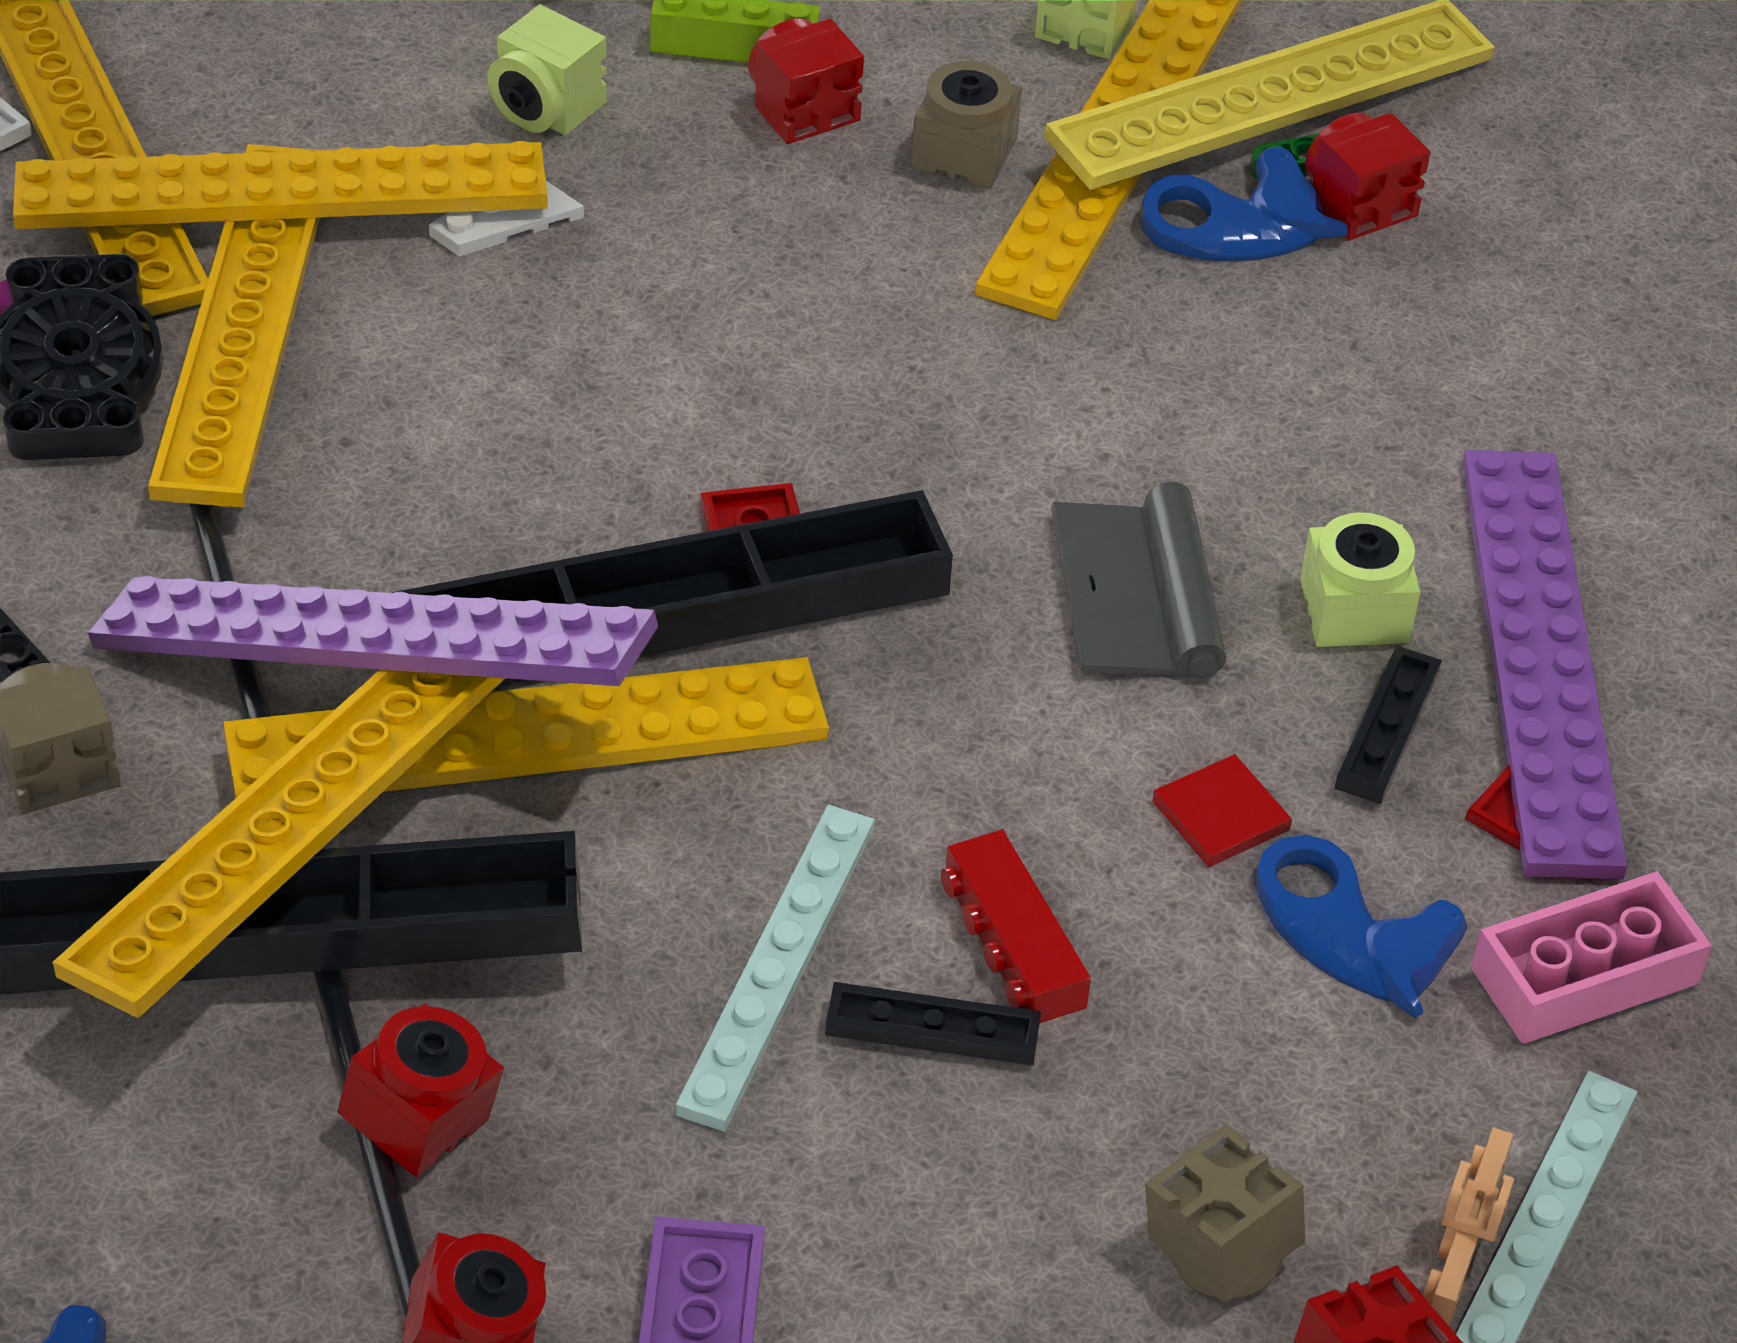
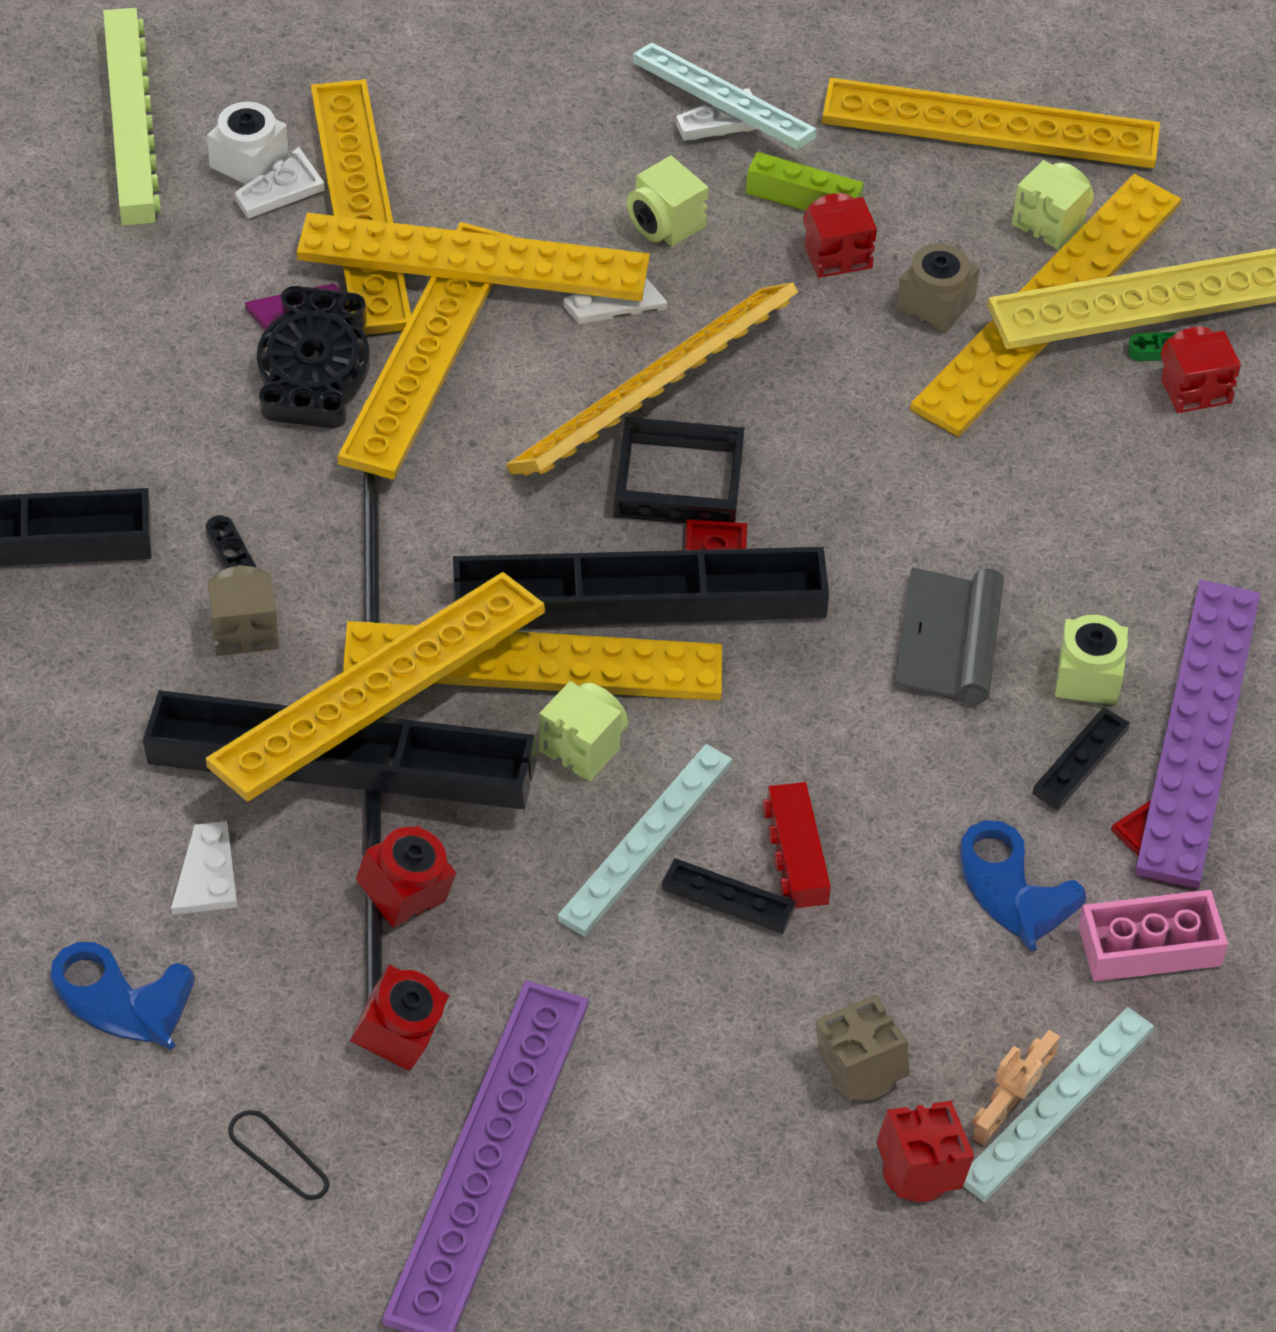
camera: 15 degrees right, 5 degrees up
(87, 1150) = (207, 872): none -> white wing
(377, 630) = (450, 581): medium lavender plate -> none
(589, 313) = (650, 380): none -> yellow plate
(637, 813) = (582, 728): none -> yellowish green piece
(678, 477) = (669, 506): none -> black window
(1222, 810) = (954, 794): red tile -> none
(1276, 219) = (1131, 391): blue animal -> none

